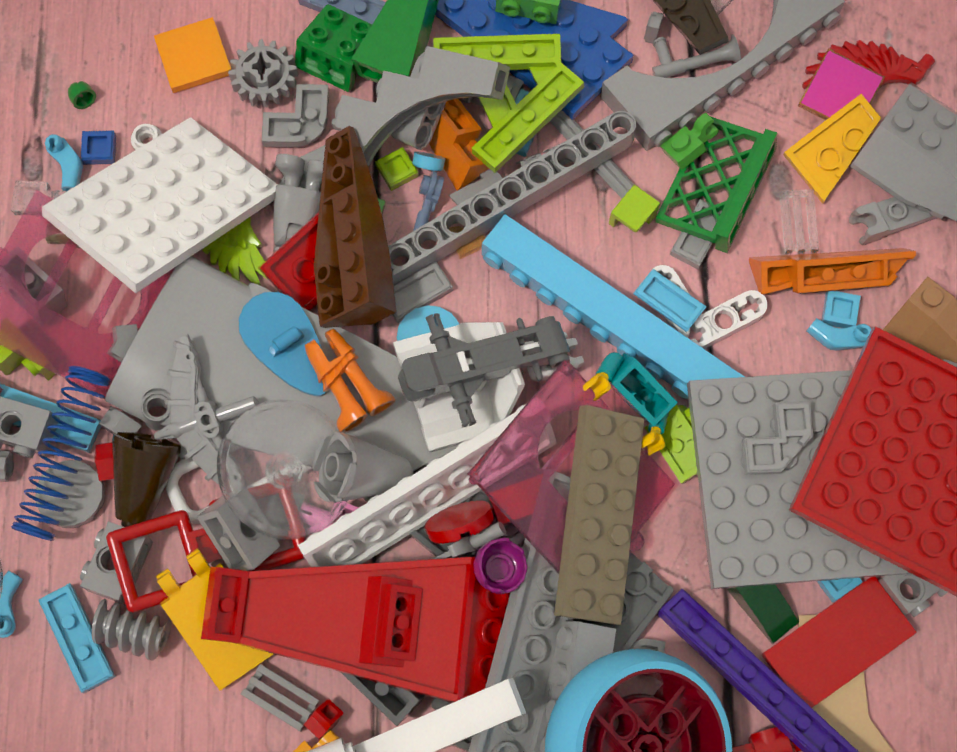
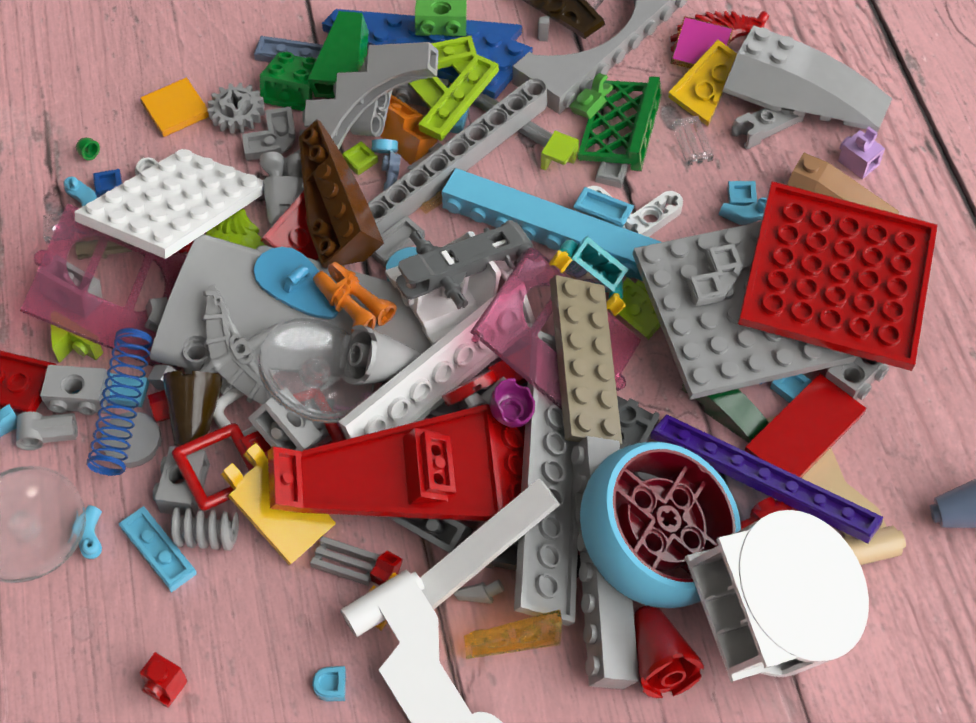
camera: 10 degrees left, 15 degrees down
(670, 68) = (604, 35): light grey piece -> none
(828, 270) = (725, 167): orange wedge -> none

